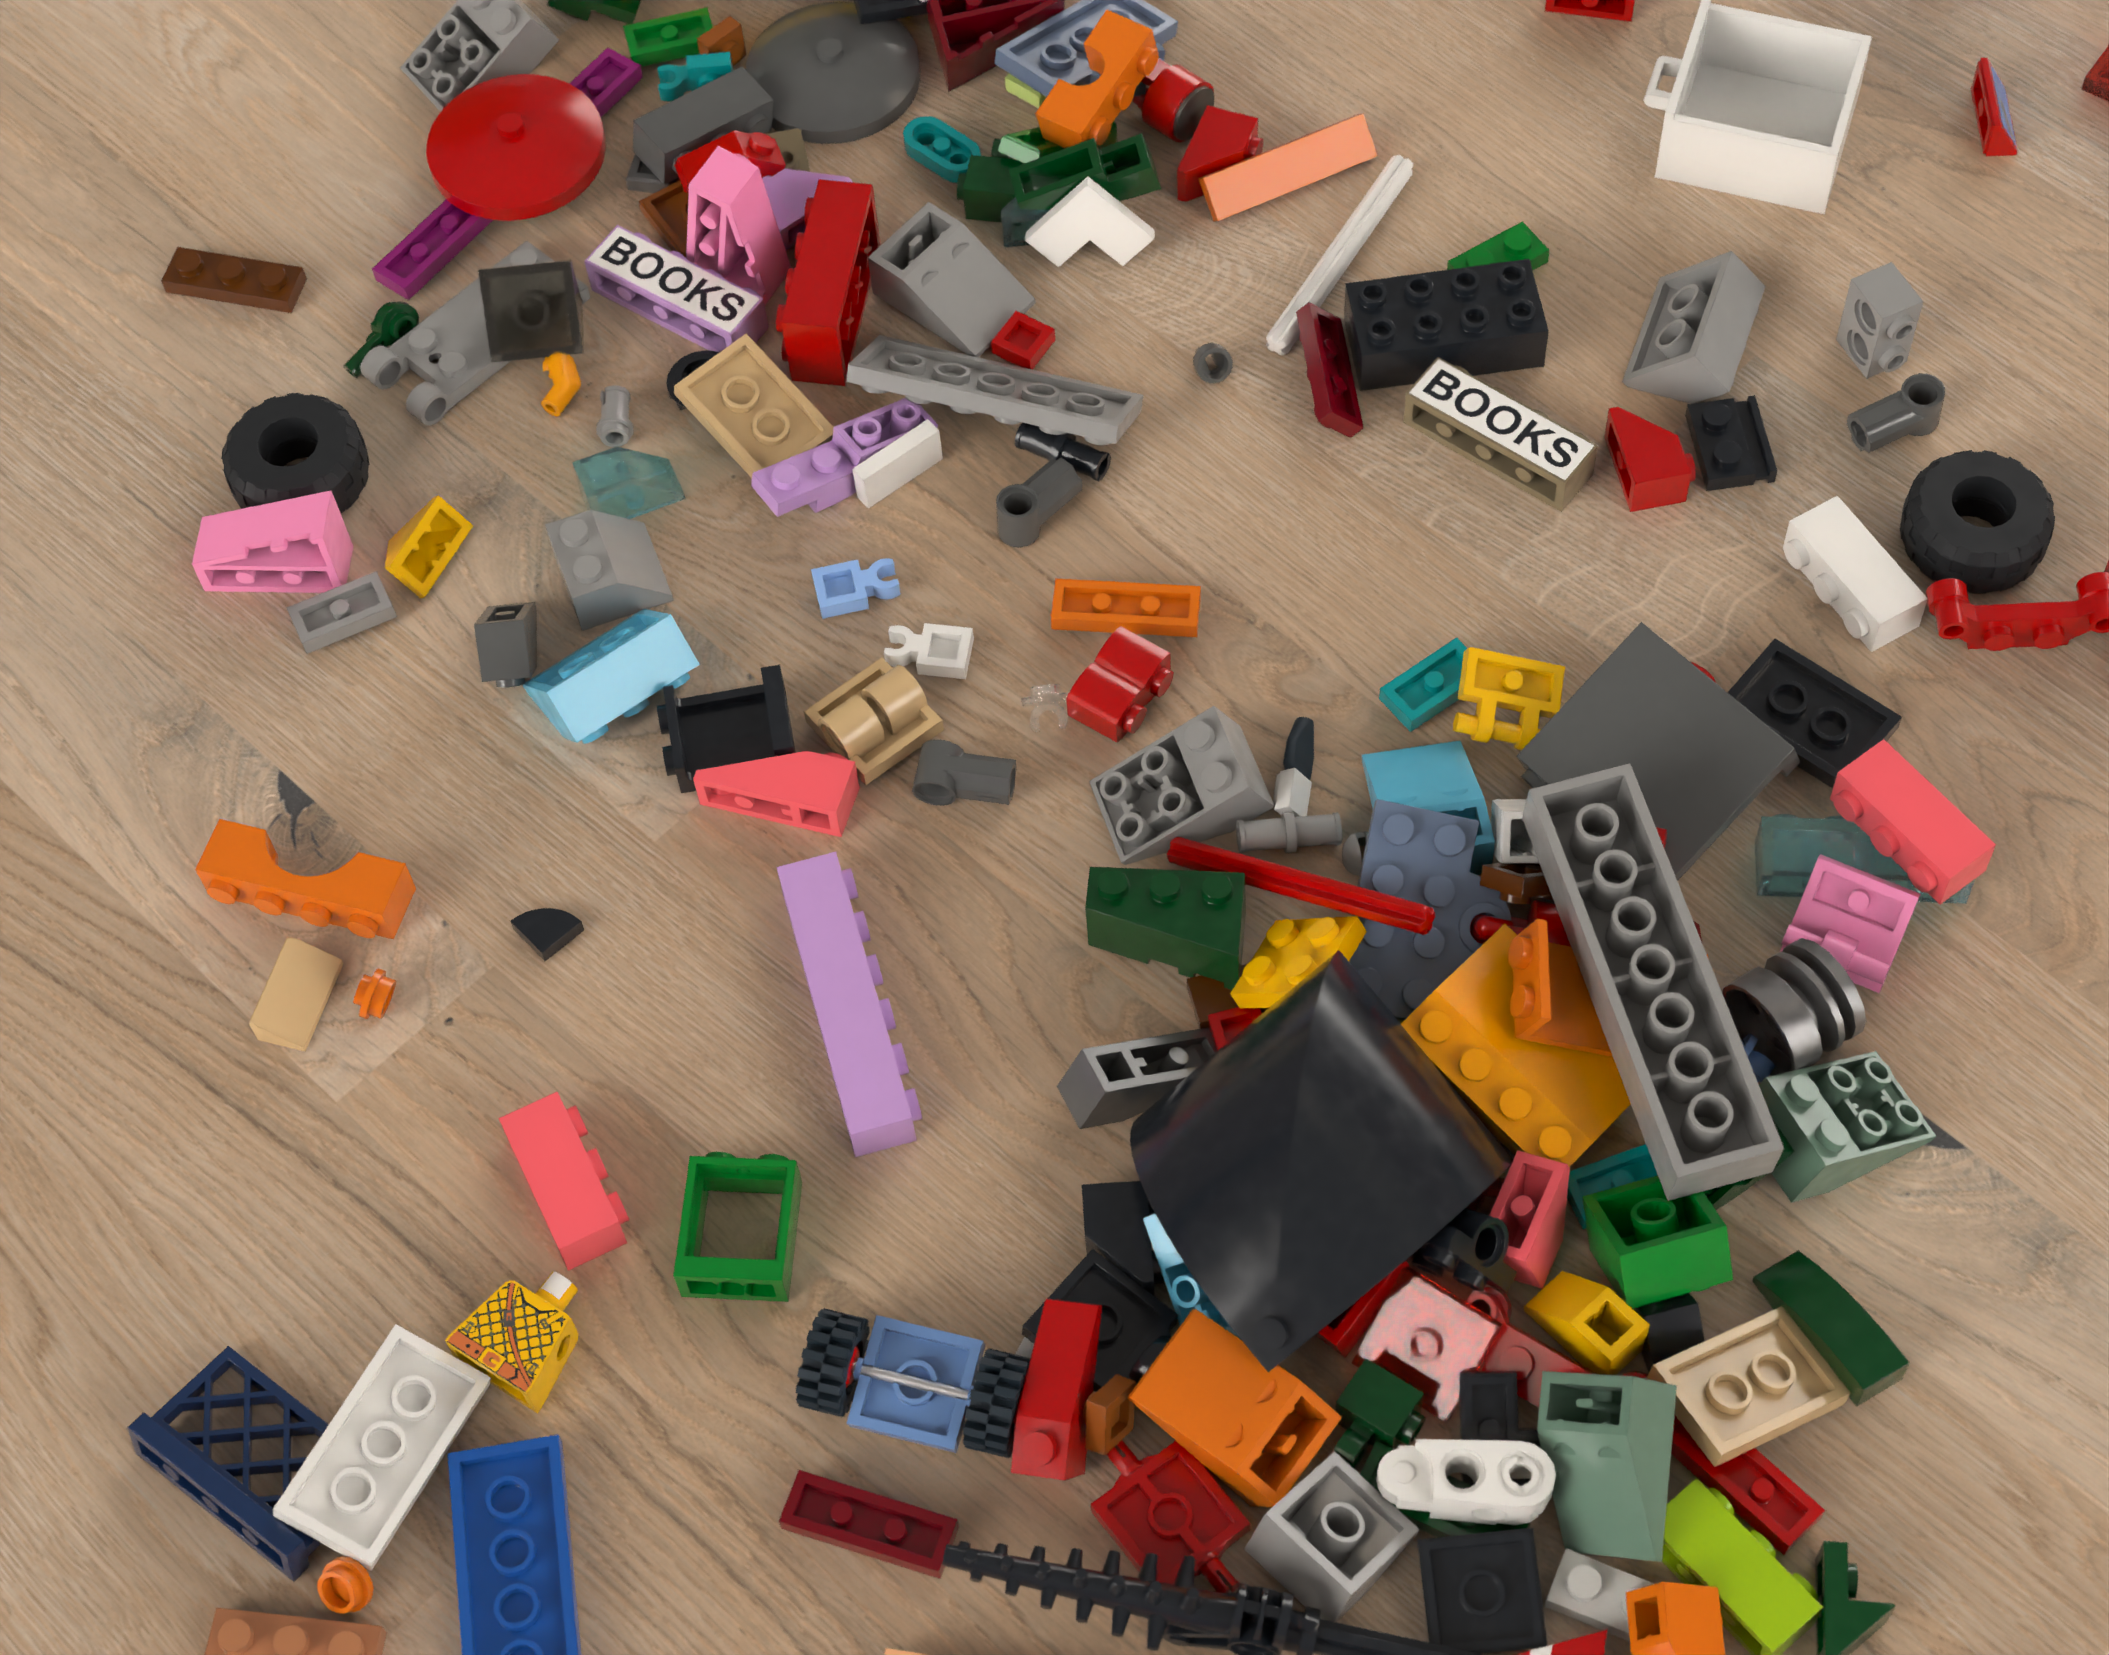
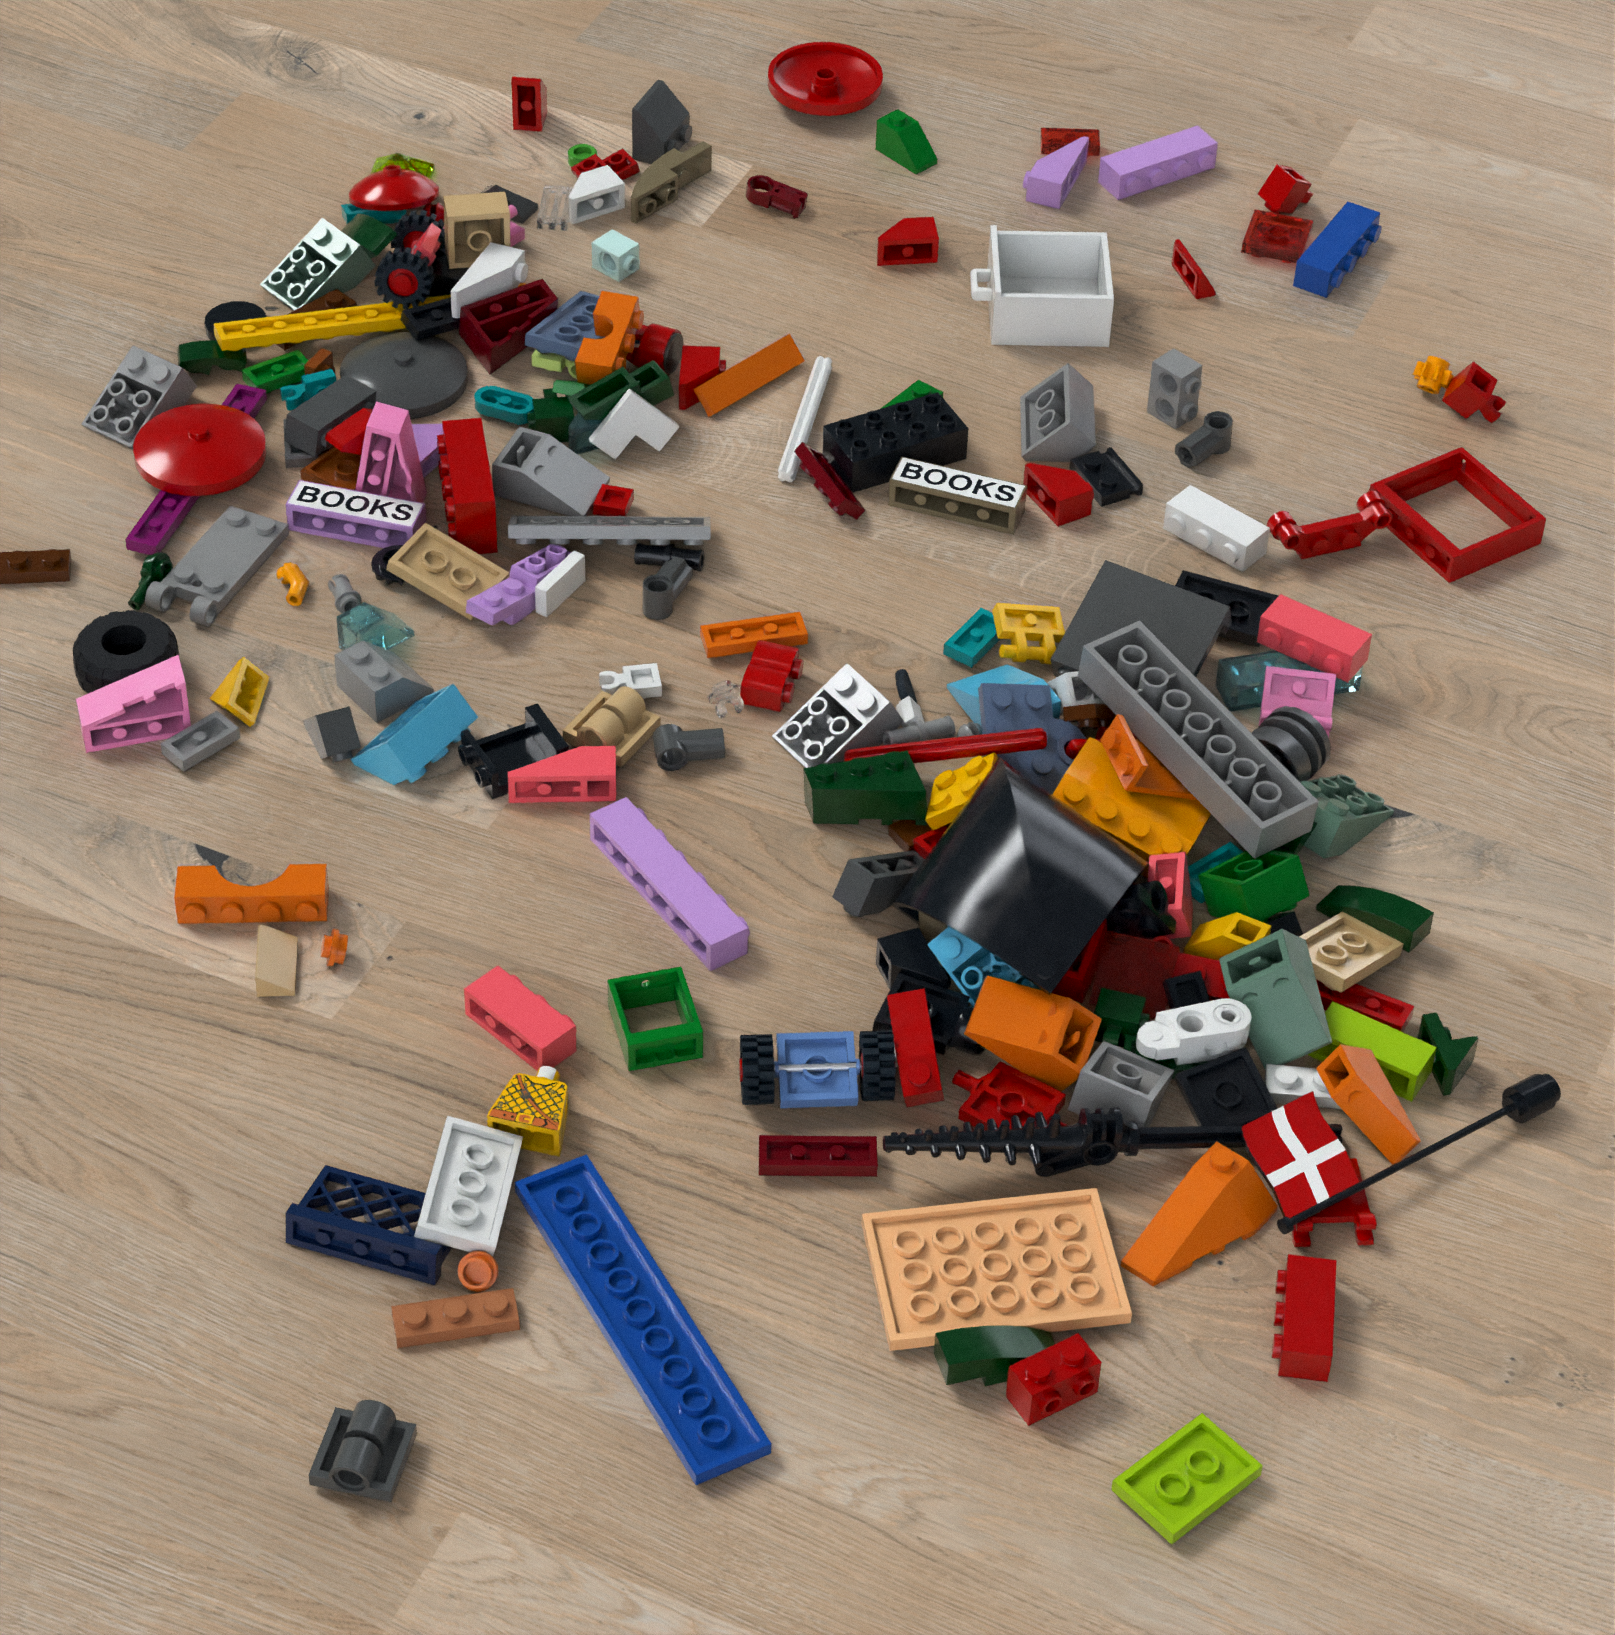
camera: 25 degrees left, 15 degrees down
(532, 310) = (262, 536): clear smoke slope -> none
(547, 930) = (437, 890): black tile -> none
(845, 586) = (558, 660): light blue plate -> none
(1109, 1415) = (952, 1051): dark orange plate -> none
(1221, 359) = (752, 489): dark grey hinge -> none
(1984, 488) = (1280, 479): black tyre -> none

